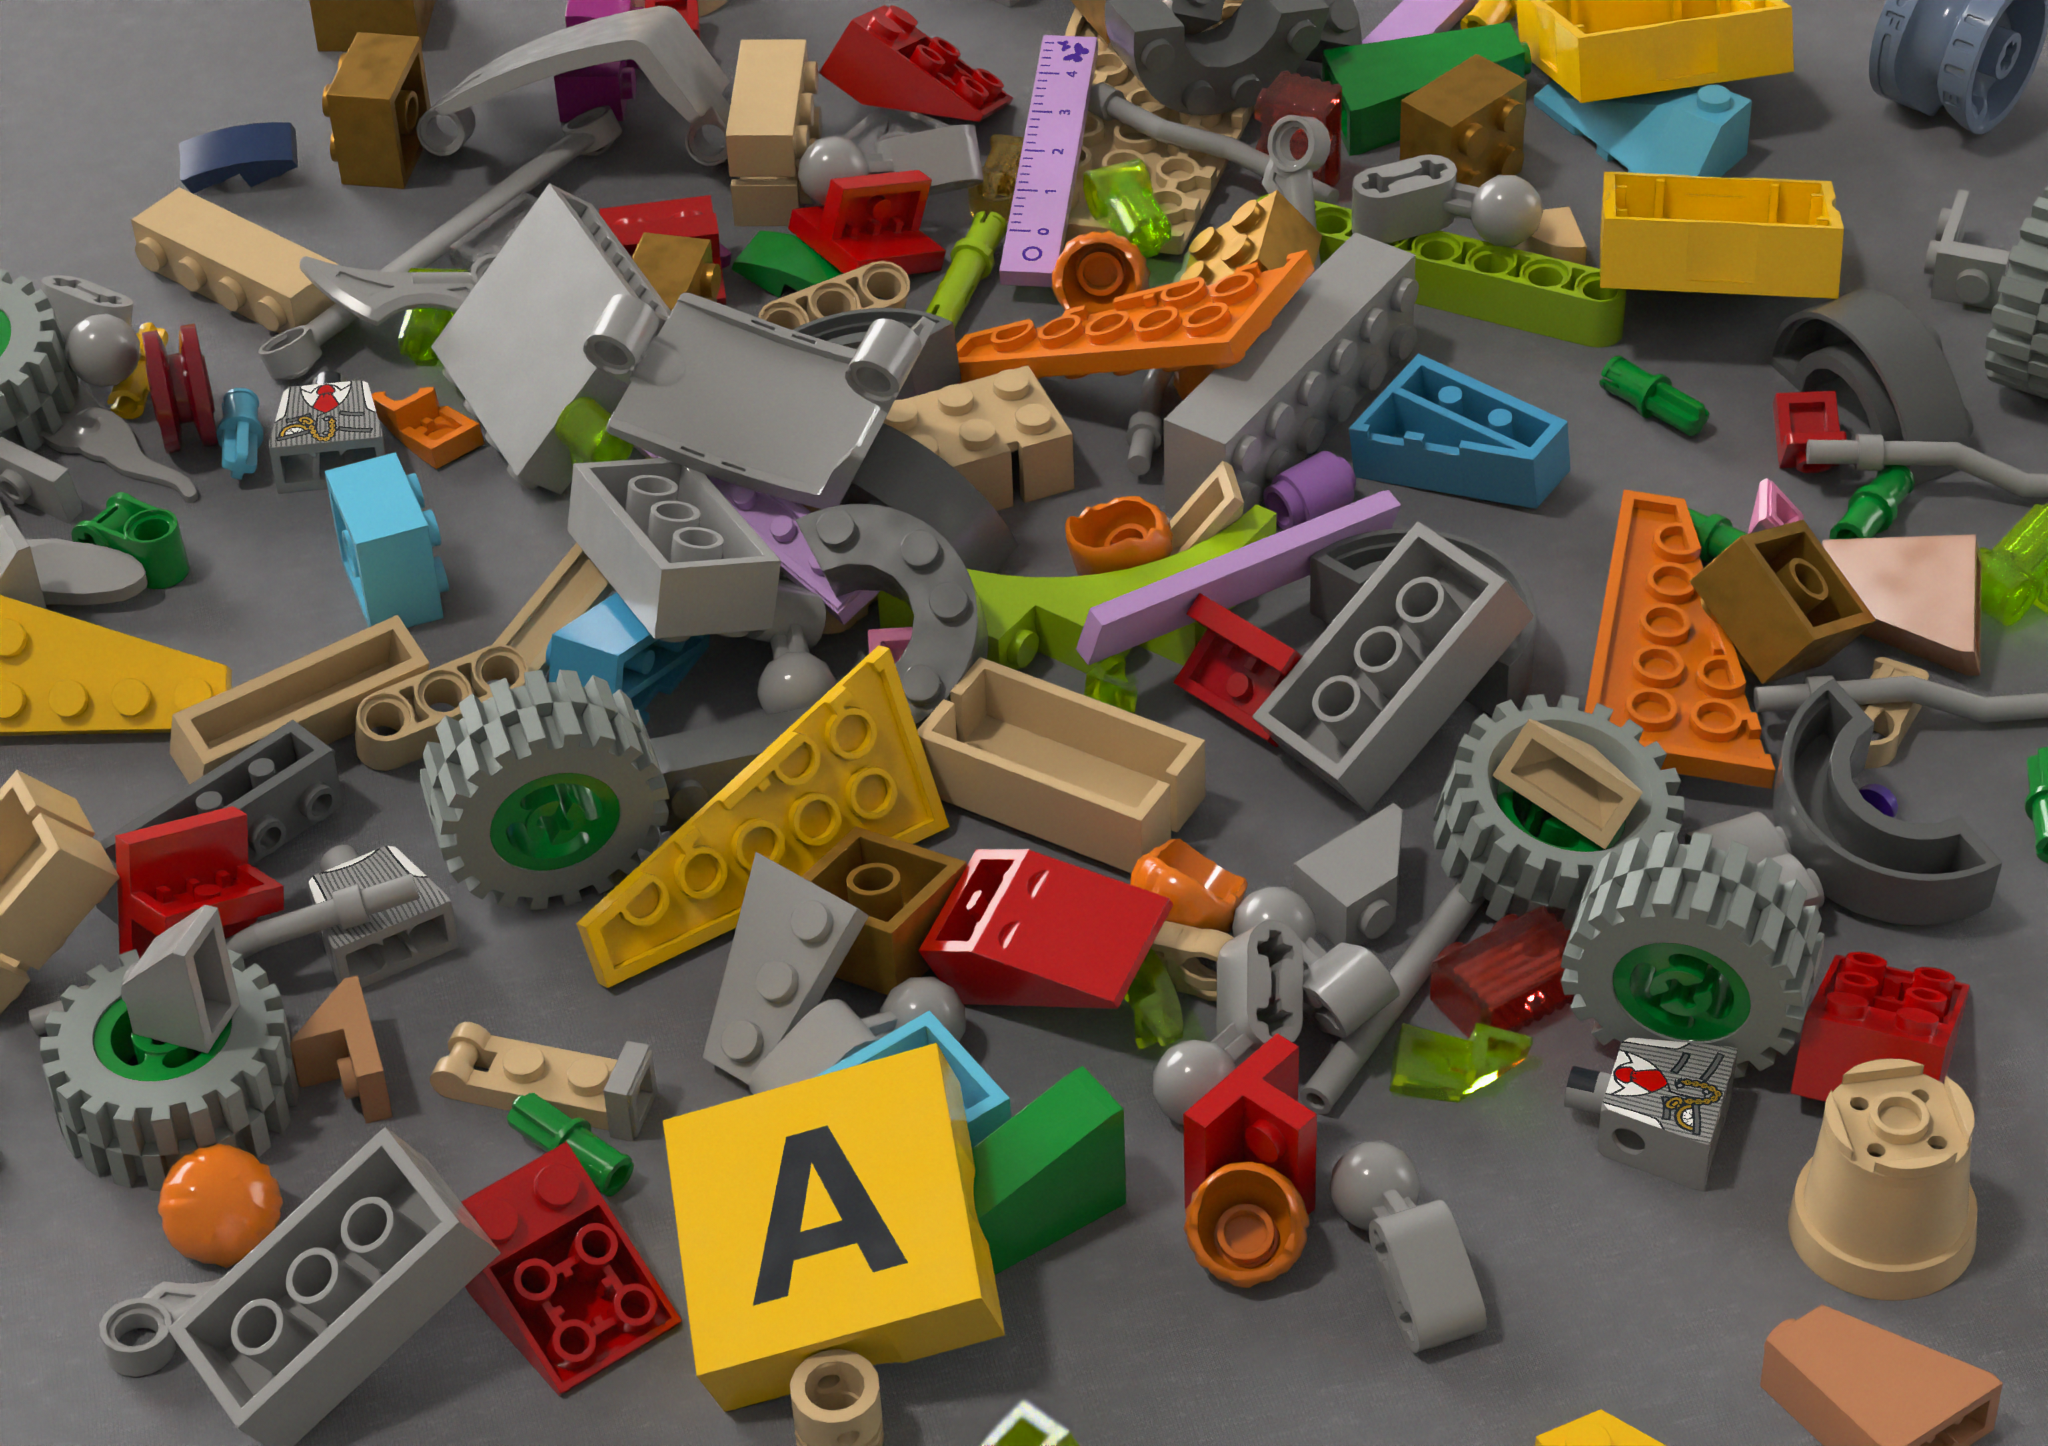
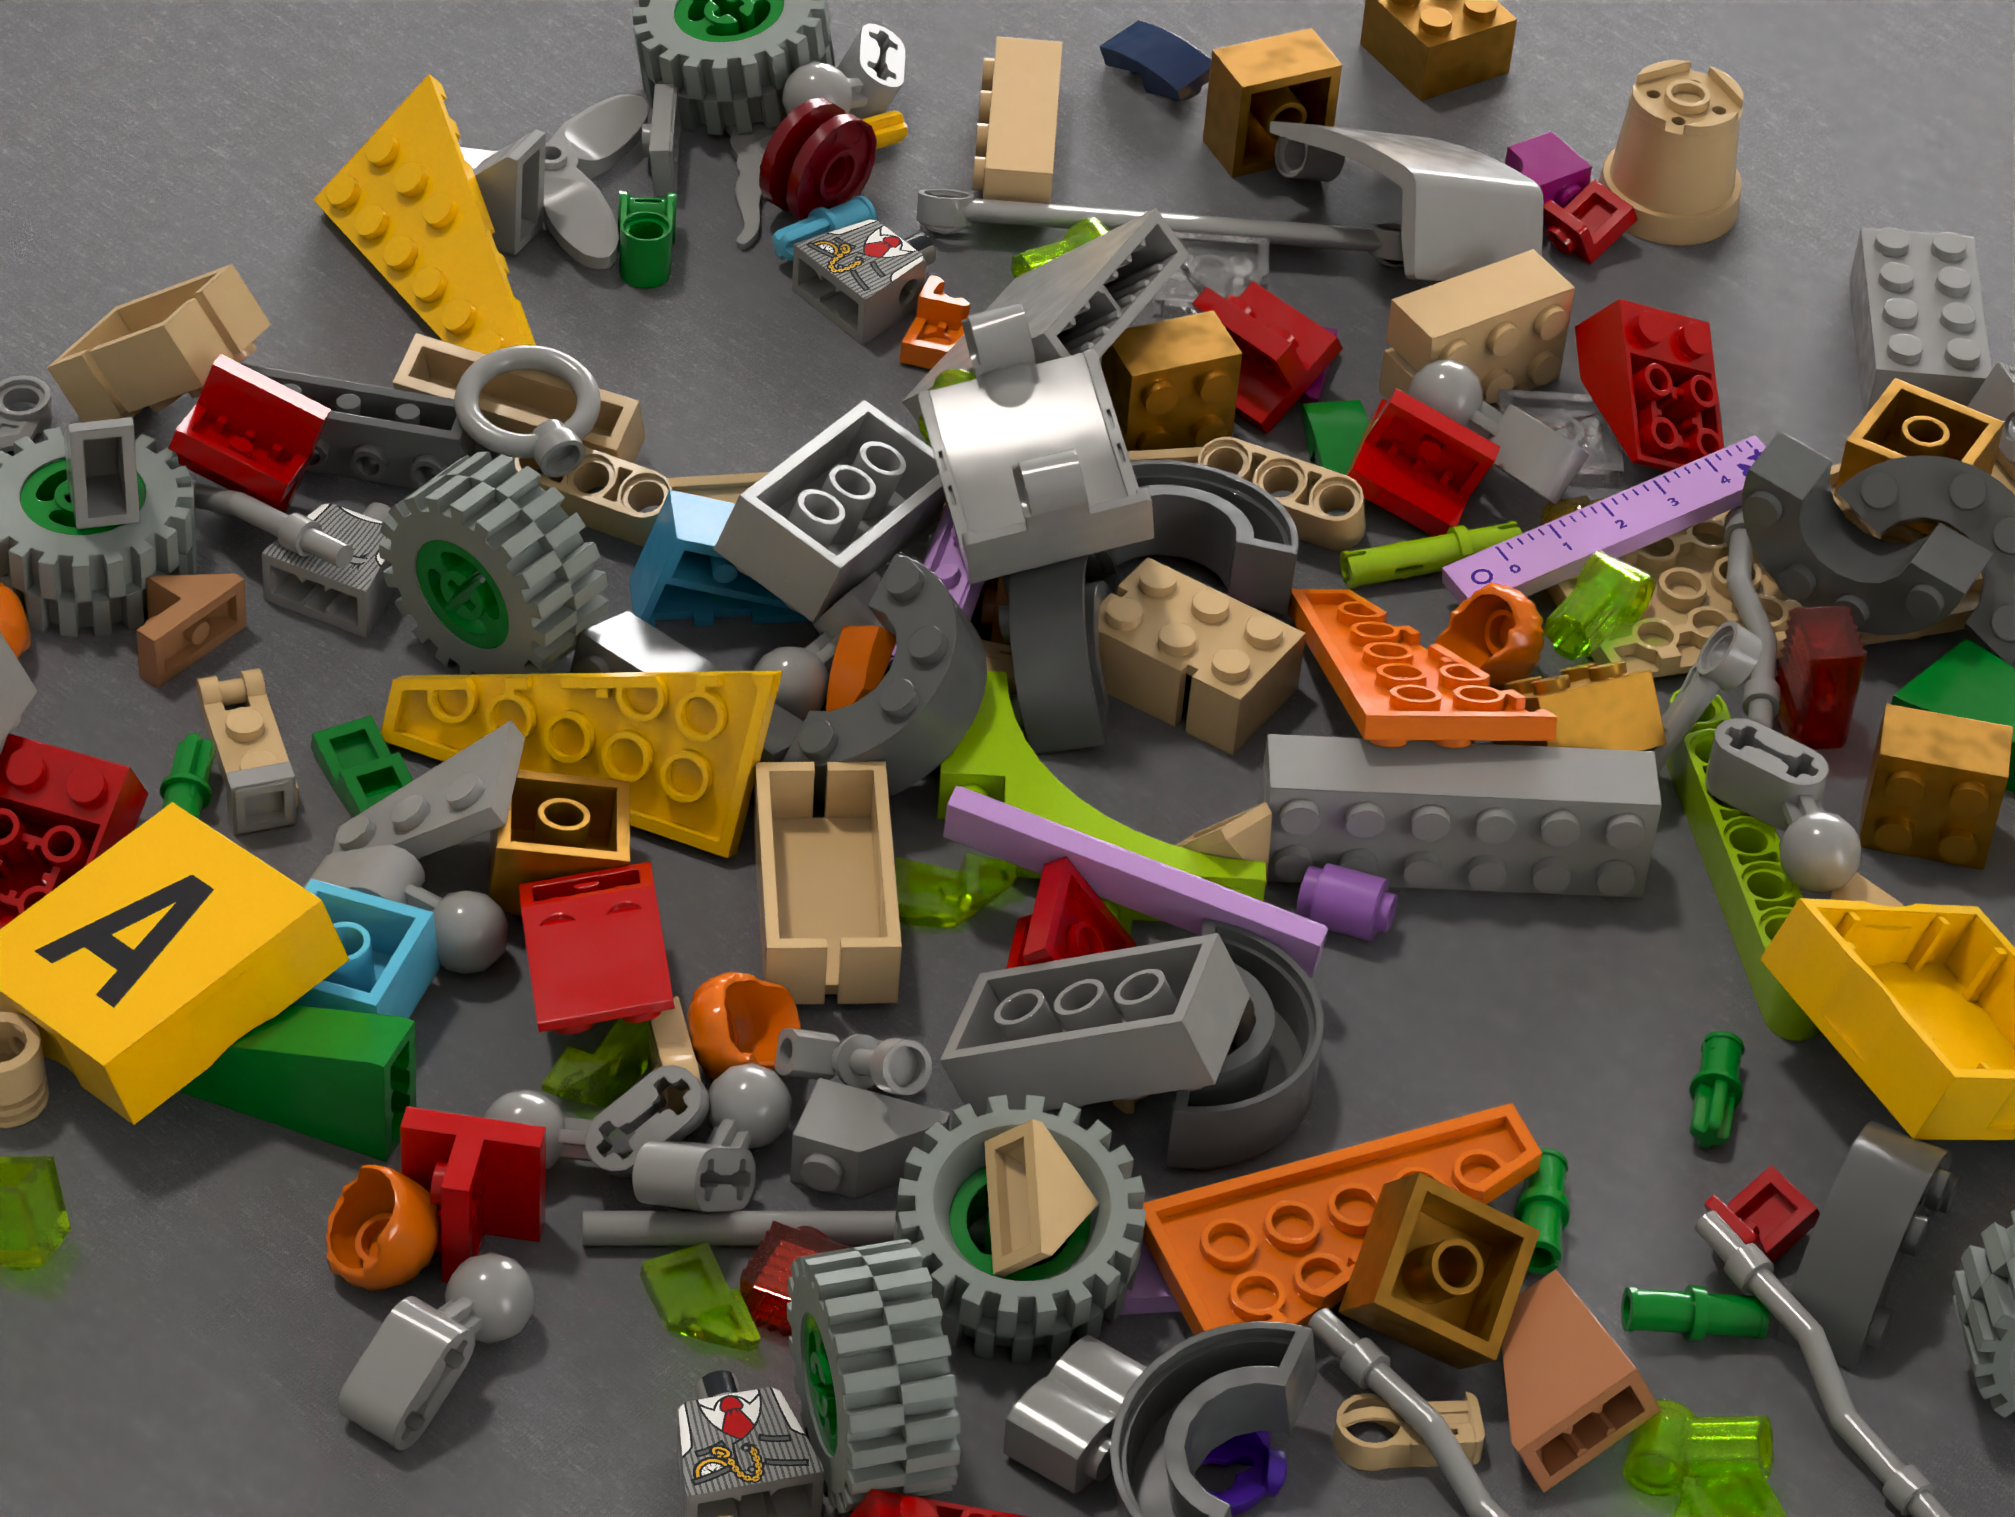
camera: 50 degrees right, 0 degrees up
(380, 294) = (1028, 210): light grey piece -> none
(387, 541) = (737, 362): medium azure brick -> none
(404, 686) = (552, 444): none -> light grey piece
(665, 1017) = (359, 763): none -> green slope
(845, 625) = (858, 664): none -> orange slope
(1118, 536) = (1149, 793): orange hair -> none
(1290, 829) = (859, 1061): none -> light grey bar
(1459, 438) = (1495, 963): dark azure wedge -> none
(1772, 508) = (1614, 1248): bright pink slope -> none

